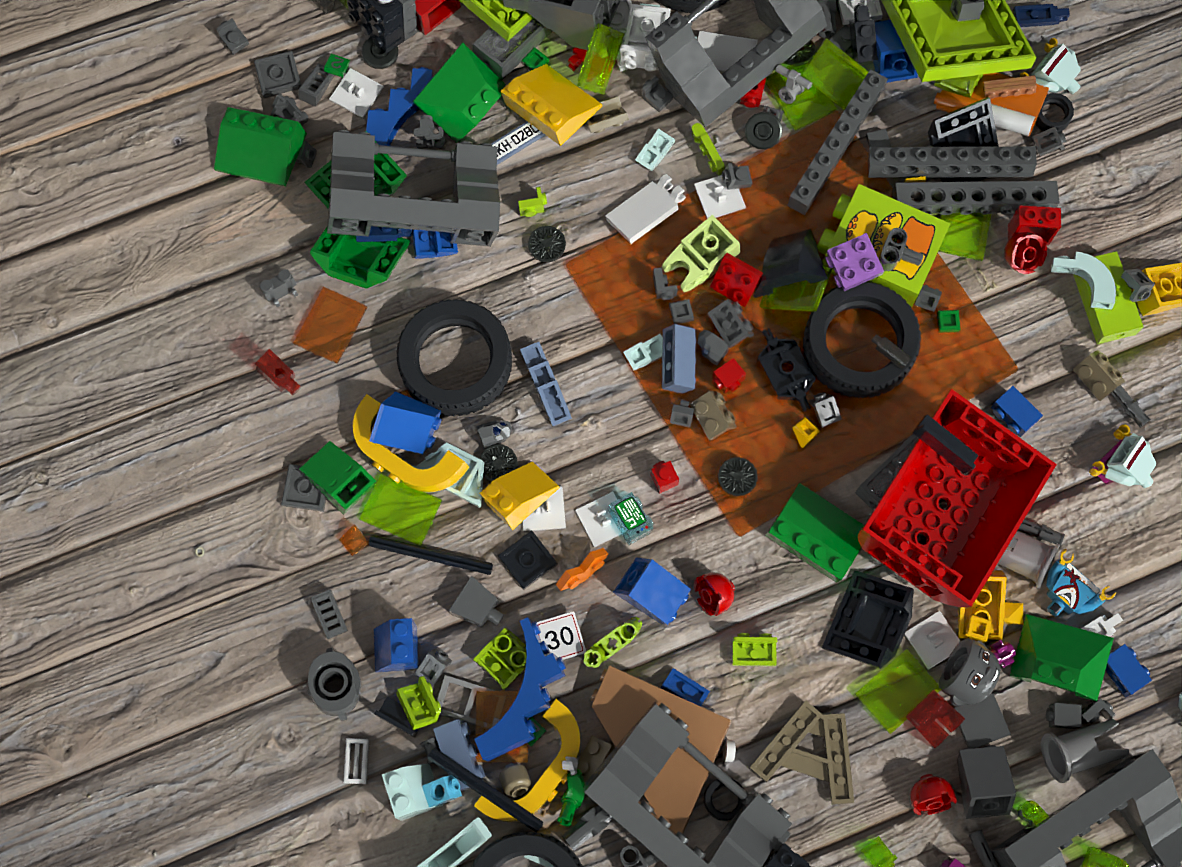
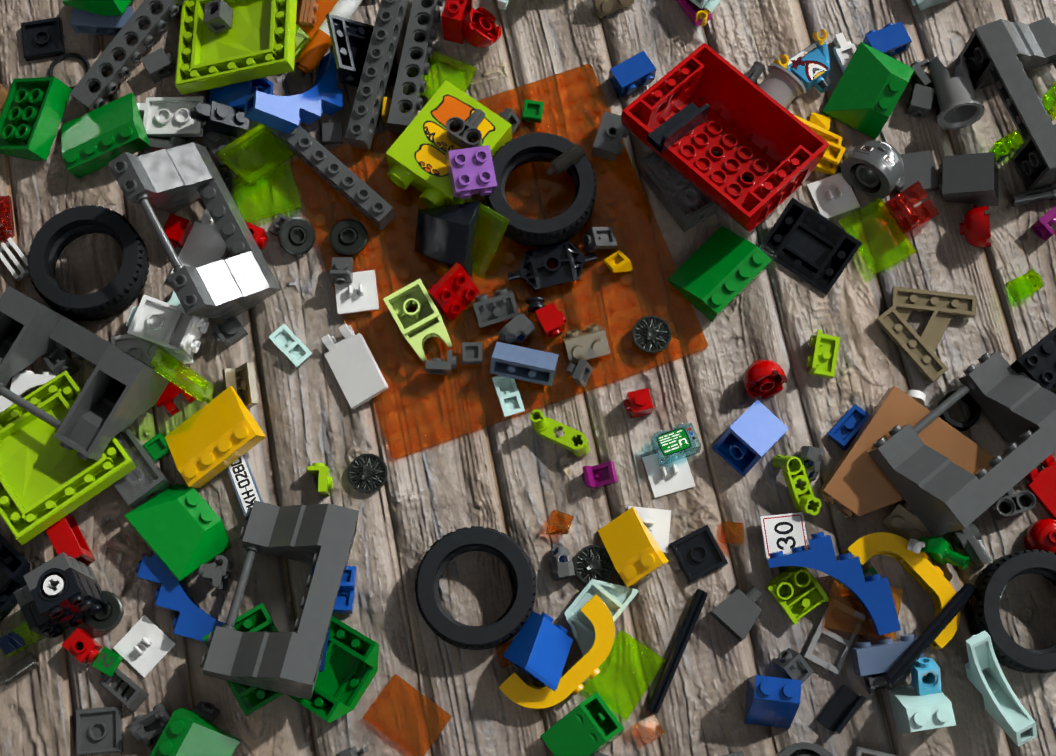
camera: 80 degrees left, 0 degrees up
(346, 41) = (82, 646): none -> red brick
(419, 703) = (832, 686): lime bracket -> none
(515, 780) = (919, 604): dark tan head -> none
(532, 424) = (559, 523): none -> clear orange slope
(545, 383) = (518, 501): sand blue slope -> none
(551, 591) = (732, 533): none -> clear orange slope
(577, 575) = (716, 487): orange plate -> none
(585, 451) = (599, 475): none -> magenta bracket
(615, 418) = (548, 427): none -> lime beam
(637, 653) = (811, 459): none -> dark grey rock
(707, 148) = (303, 292): lime hinge -> none
(742, 24) = (177, 230): none -> red brick
(743, 359) = (535, 303): none -> black bush
(772, 176) = (348, 237): none -> pearl dark grey wheel
(794, 85) = (257, 195): light grey piece -> none
(876, 84) = (287, 111): none -> blue arch
(931, 395) = (609, 137): none -> dark grey brick
(1003, 652) = (856, 137): magenta gear -> none

